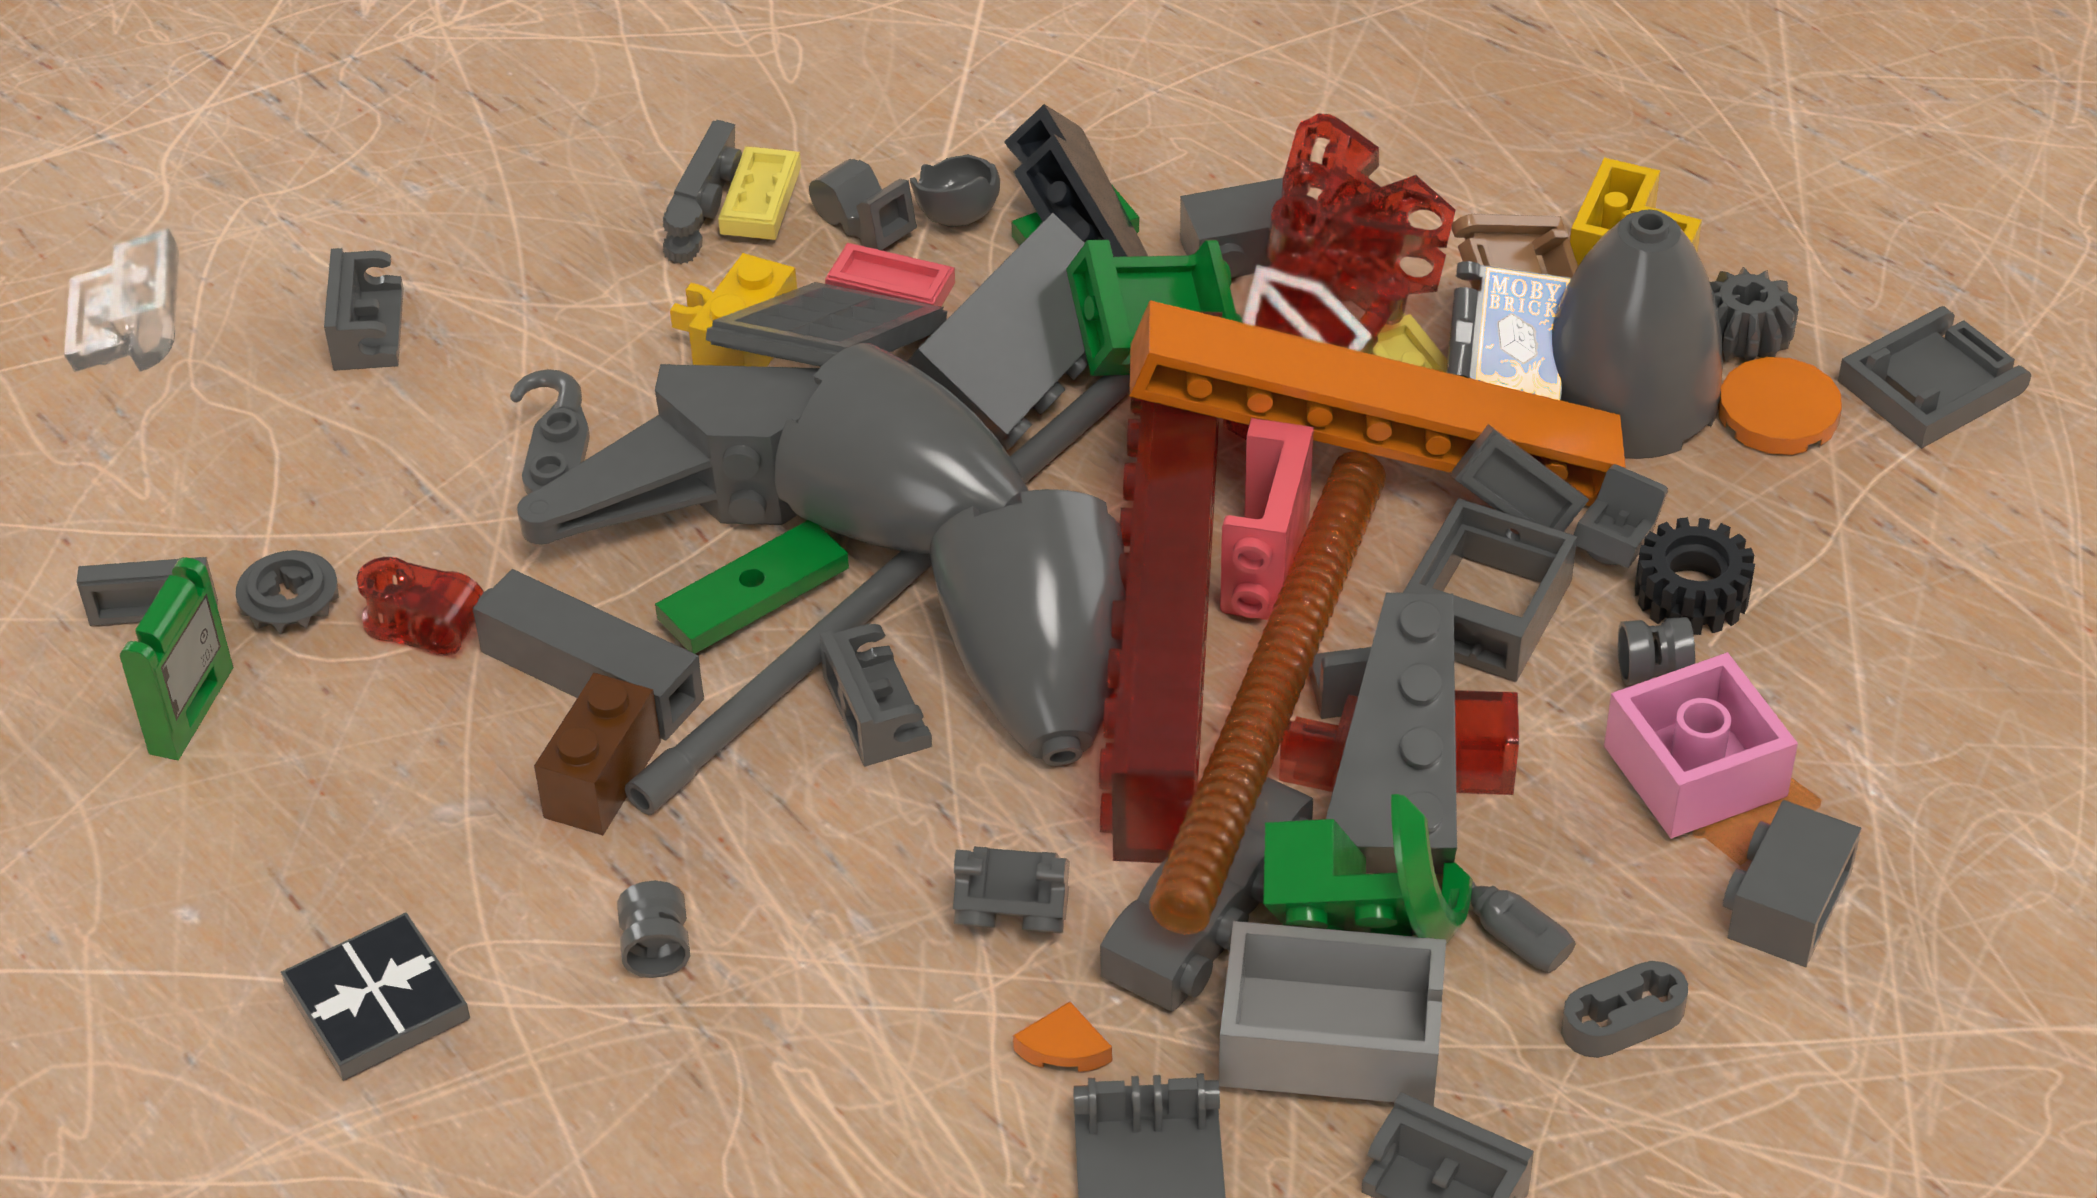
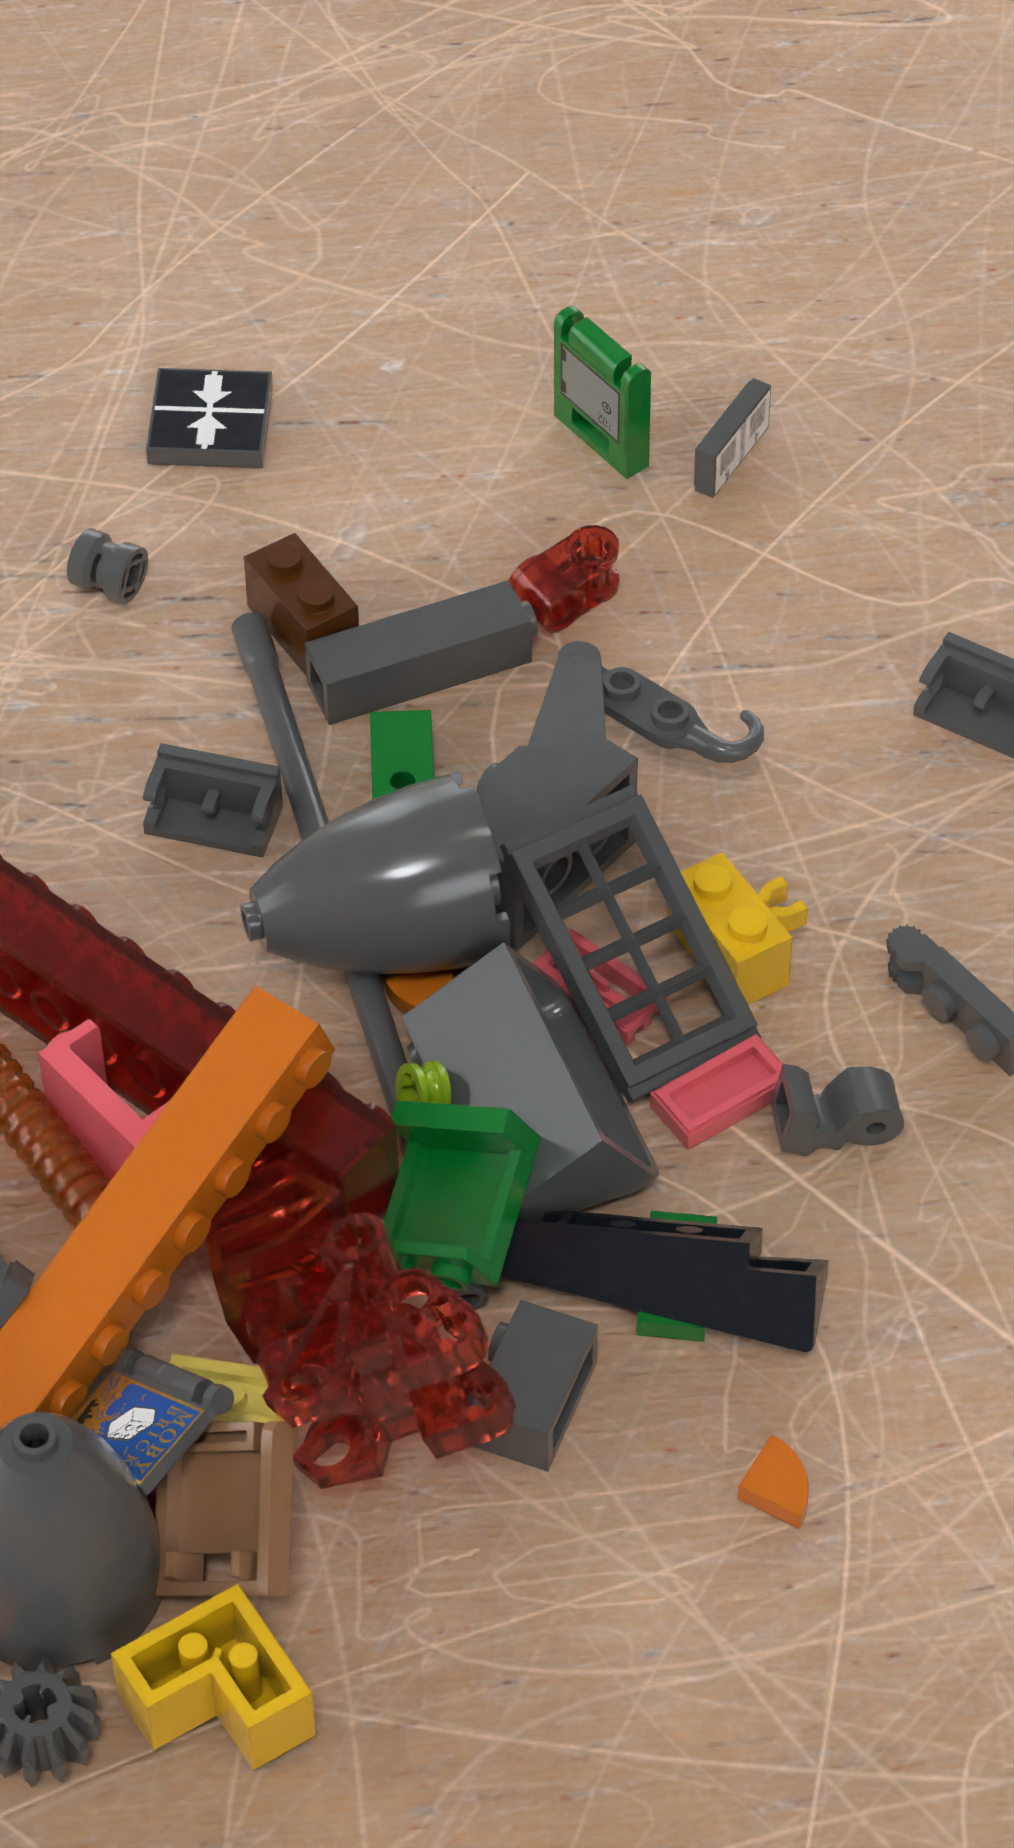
camera: 125 degrees right, 5 degrees up
(303, 573) = (651, 511): dark grey gear -> none
(759, 193) = (926, 1049): light yellow plate -> none
(957, 190) = (791, 1184): dark grey hair -> none
(1033, 613) = (172, 893): dark grey cylinder -> none
(1070, 376) = (424, 1083): none -> lime bush
(1192, 109) = (777, 1483): none -> orange tile

